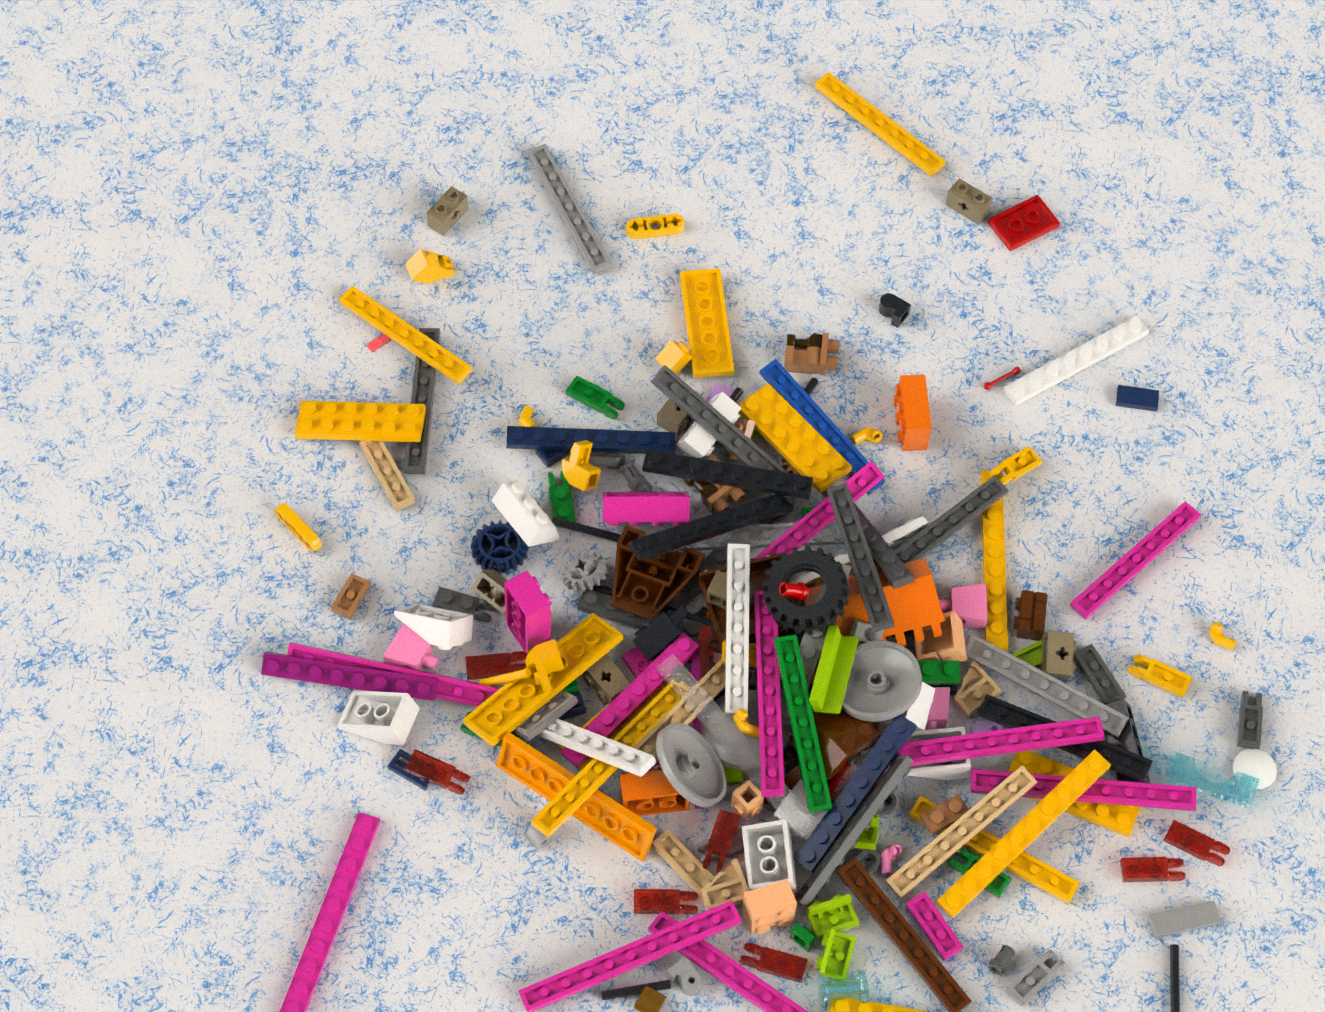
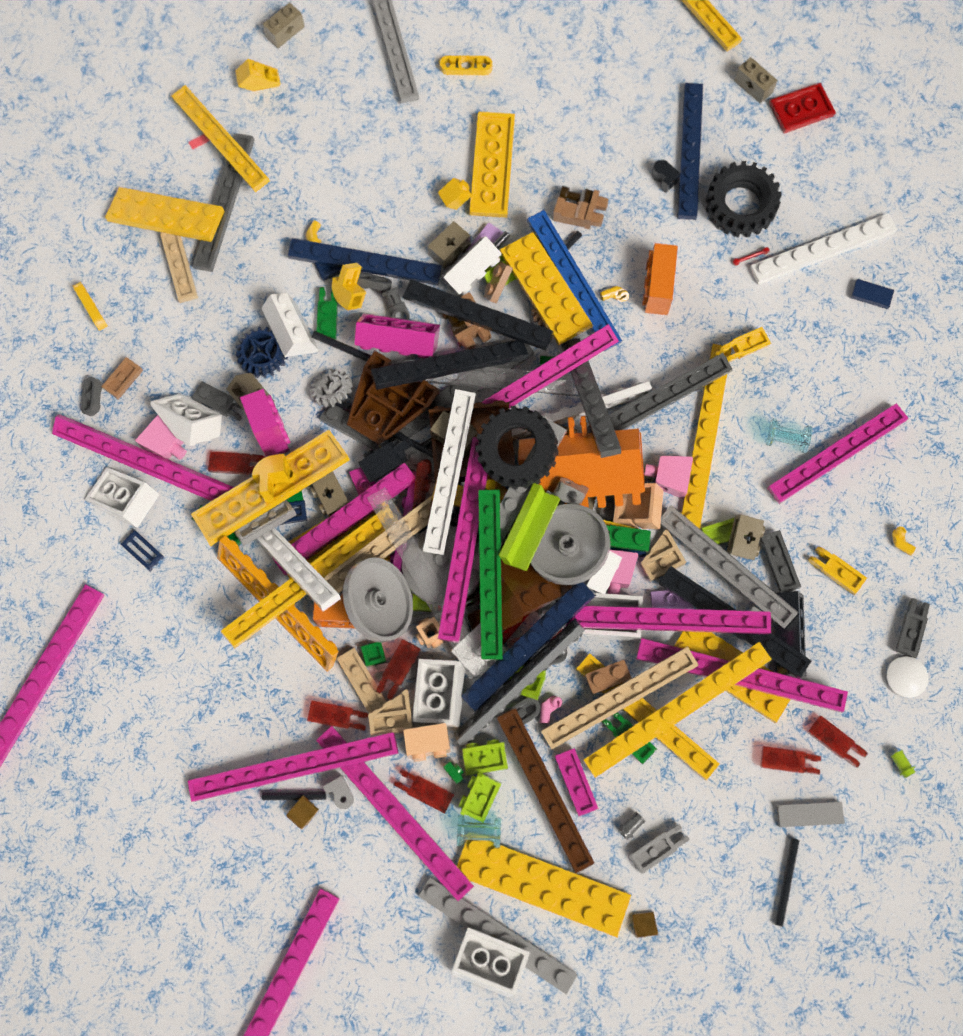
camera: 15 degrees right, 15 degrees up
(321, 619) = (91, 396): none -> dark grey plate
(348, 675) = (103, 454): magenta plate -> none
(436, 771) = (157, 558): clear red hinge -> none
(508, 677) = (237, 480): yellow bar -> none
(594, 397) = (376, 220): green hinge -> none
(690, 833) = (373, 654): none -> green plate
(713, 421) = (472, 264): dark grey plate -> none
(743, 725) = (436, 564): yellow arm -> none
(797, 590) = (509, 449): red pin -> none
(860, 558) = (576, 422): dark grey plate -> none
(915, 282) = (690, 151): none -> dark blue plate
(981, 300) = (749, 178): none -> black tyre
(1031, 615) = (729, 492): reddish brown brick -> none
(1081, 549) = (789, 435): none -> clear light blue piece
(1239, 787) = (888, 695): clear light blue arch -> none
(1269, 854) = (903, 764): none -> lime pin

